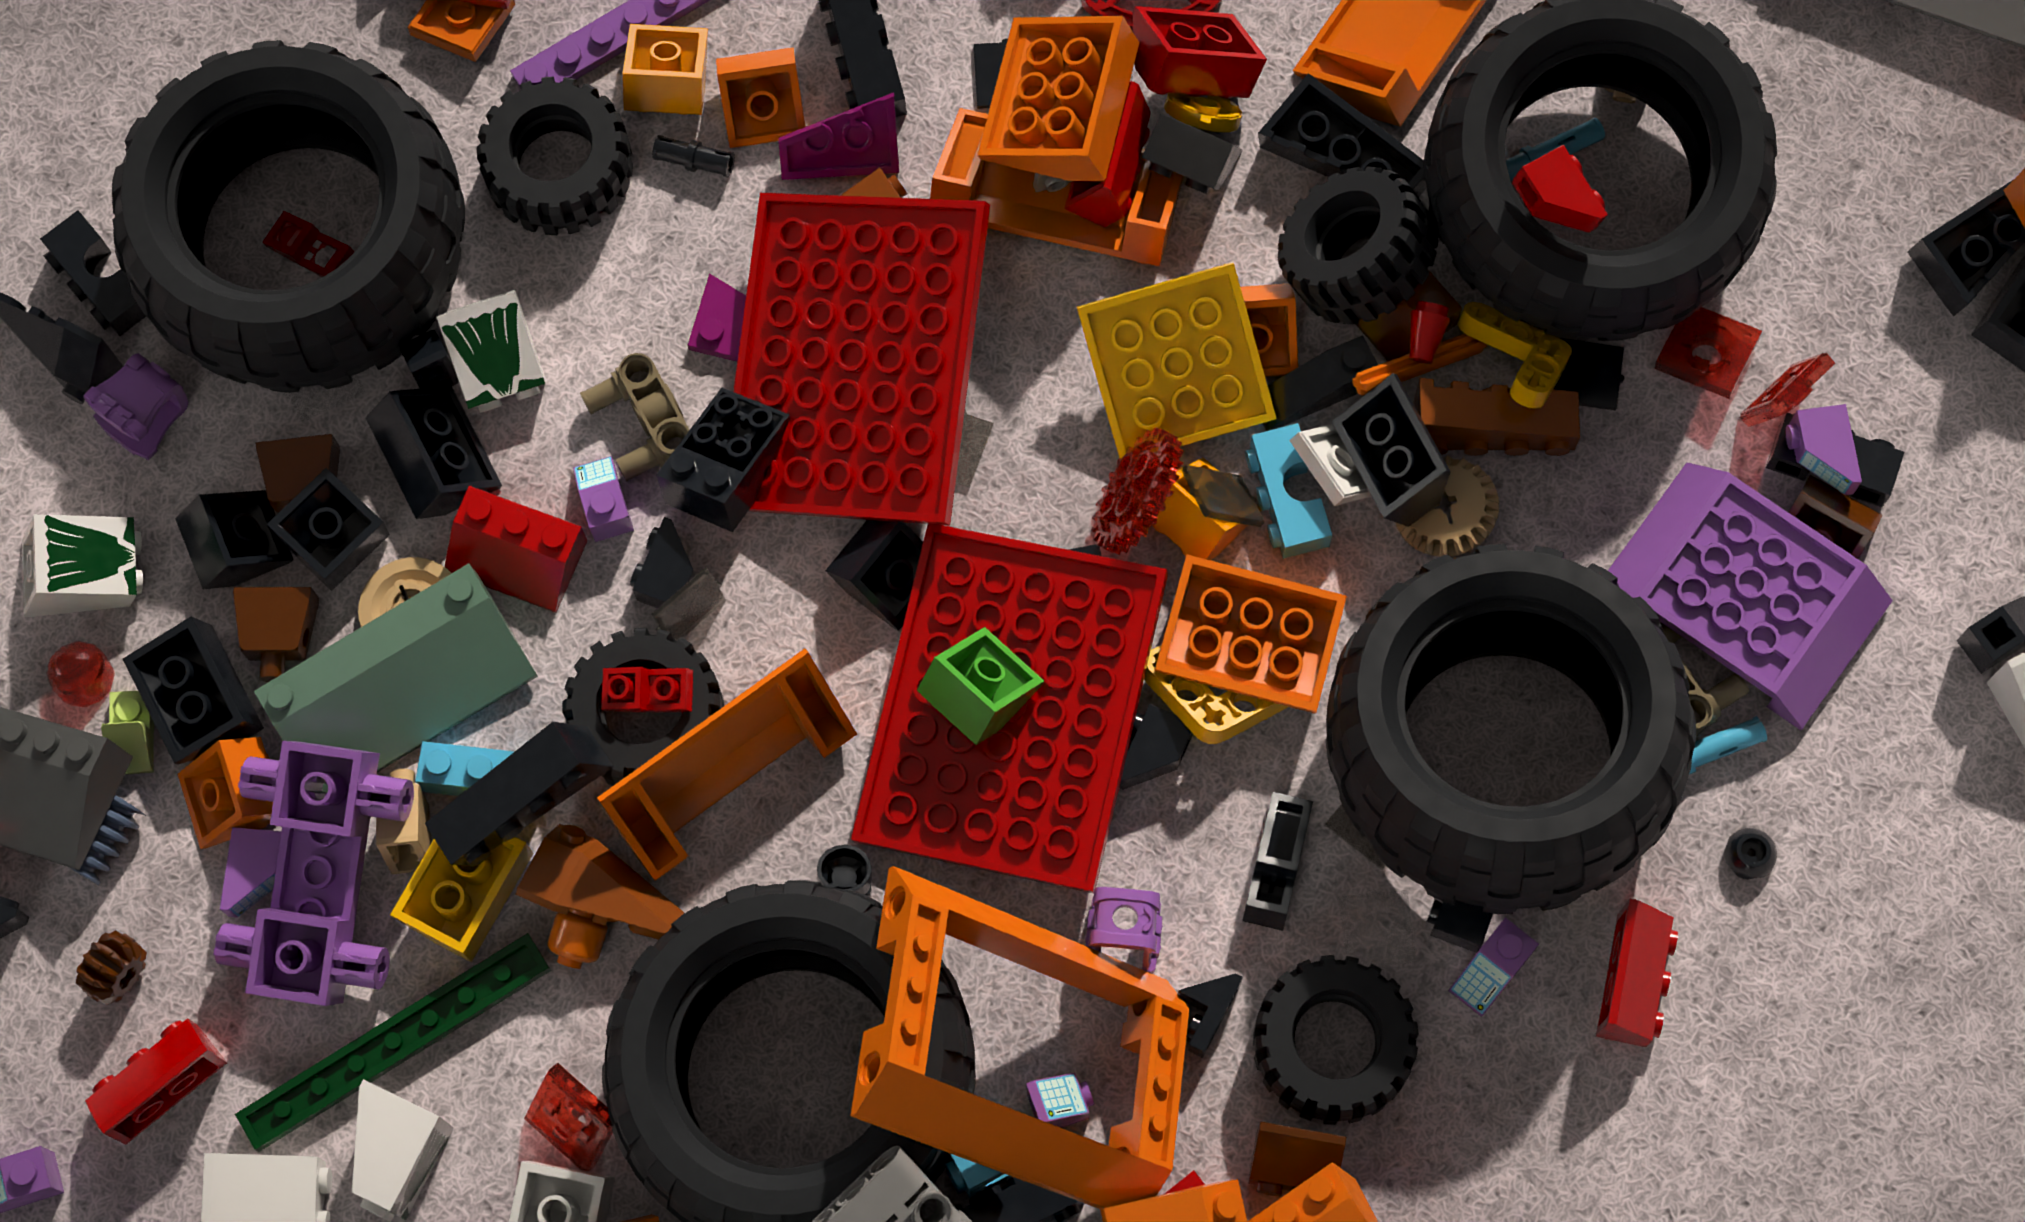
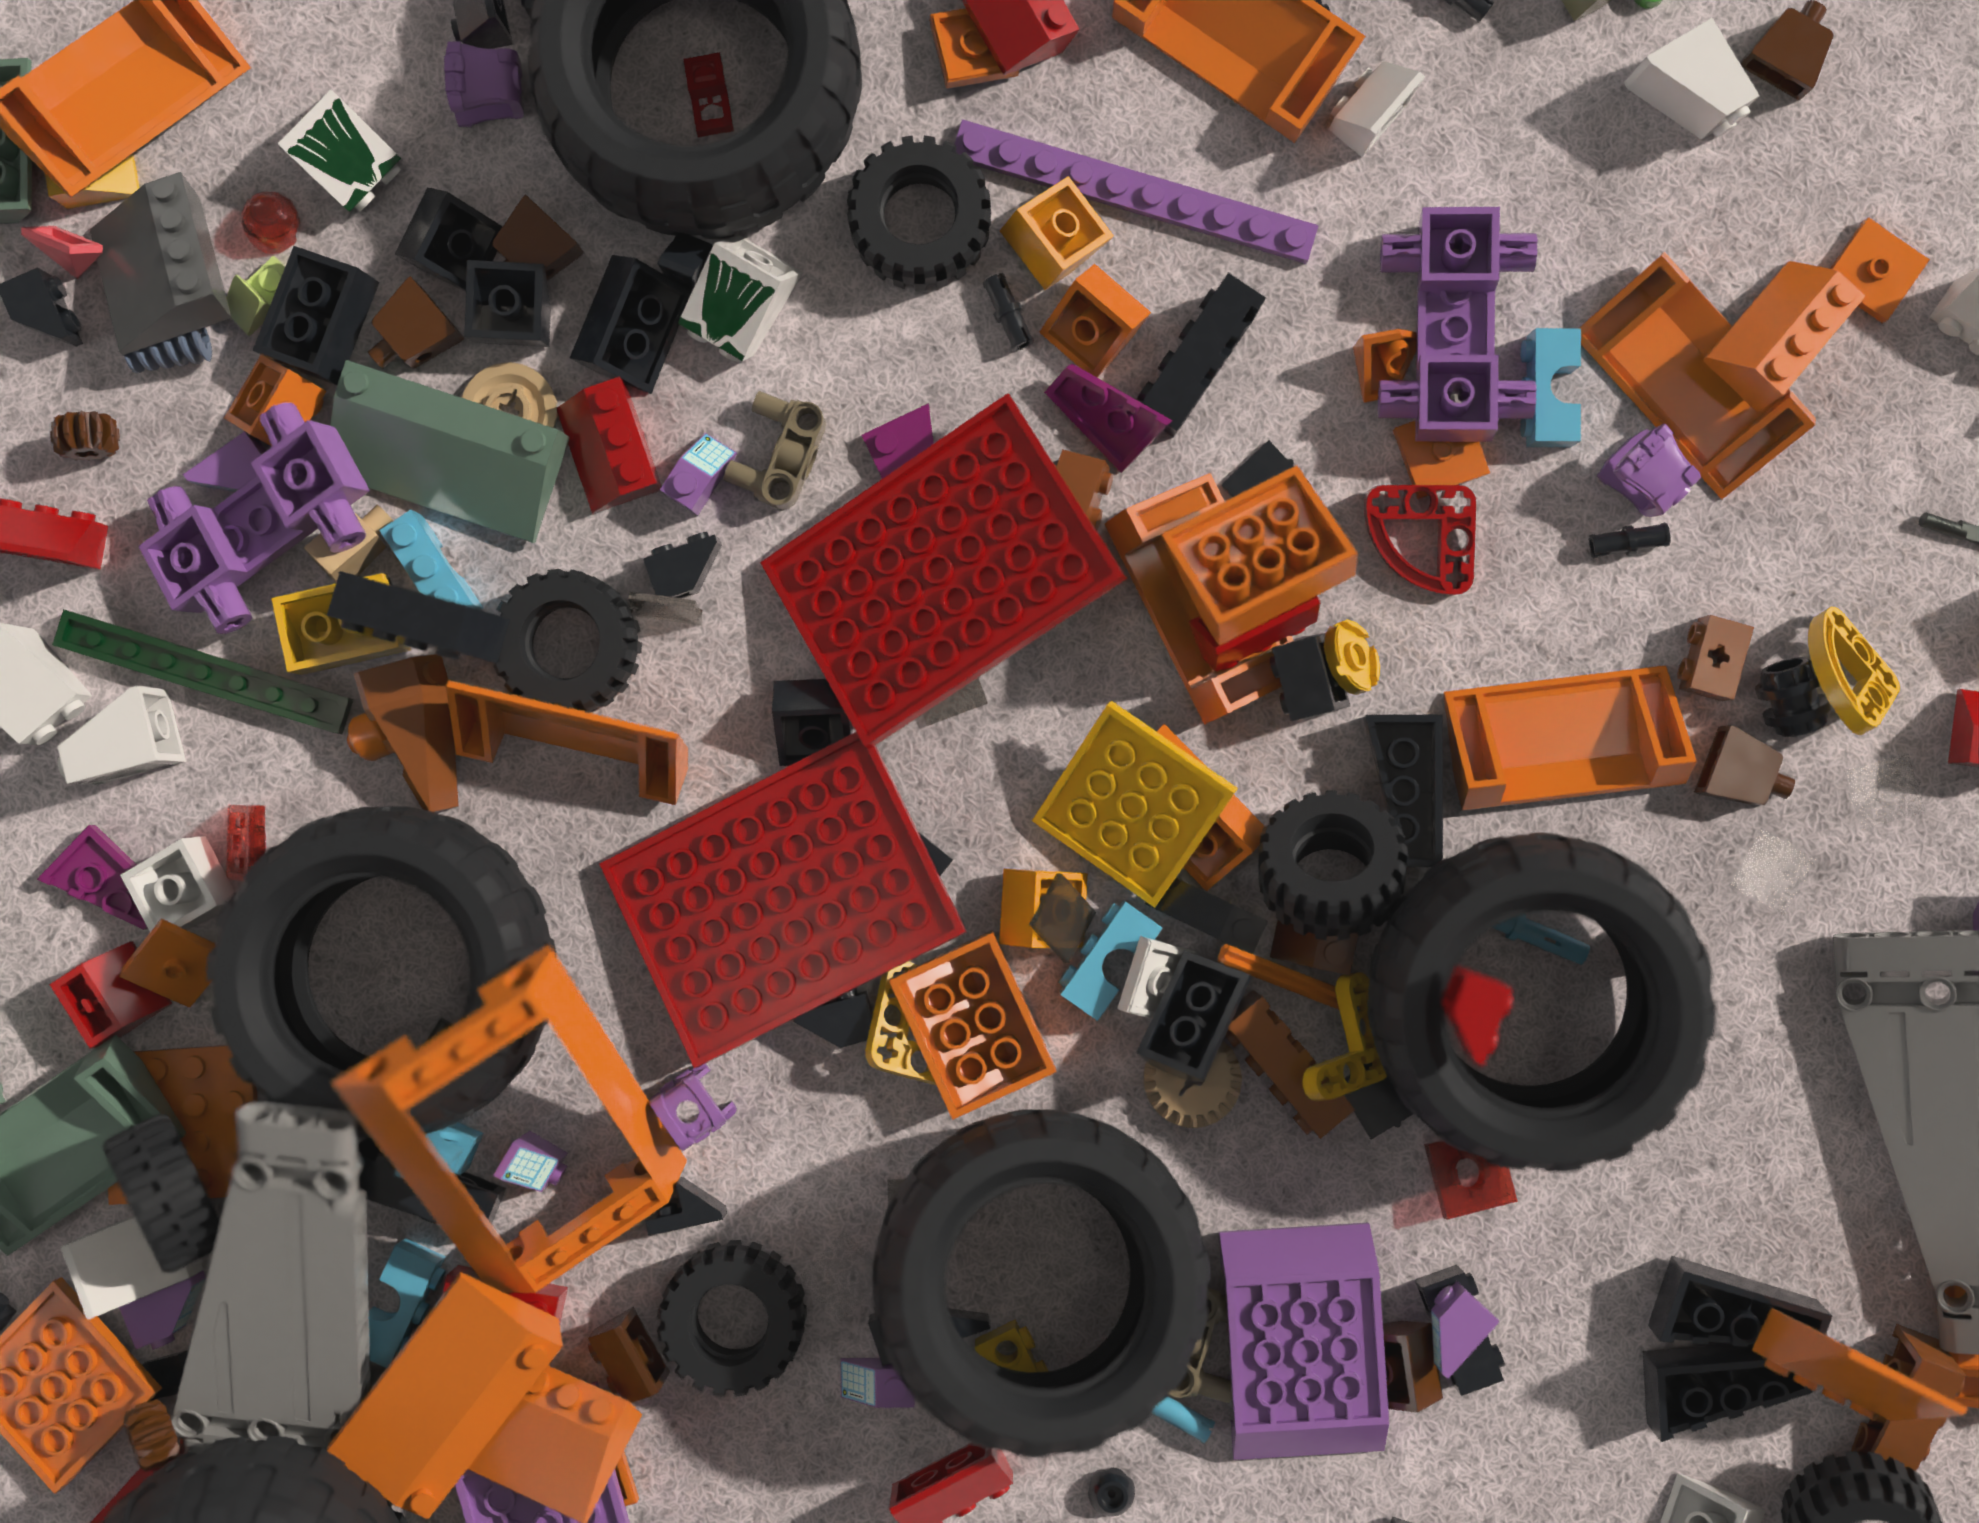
camera: 50 degrees right, 15 degrees up
(647, 689) = (569, 639): red slope -> none
(723, 459) = (792, 539): black slope -> none
(845, 869) = (562, 887): black wheel -> none
(979, 685) = (771, 868): bright green slope -> none
(1137, 491) = (1009, 859): clear red gear -> none
(1195, 53) = (1391, 615): red slope -> none
(1277, 861) = (832, 1170): black slope -> none
(1427, 330) = (1306, 969): red cone -> none
(1787, 390) = (1482, 1259): clear red piece -> none

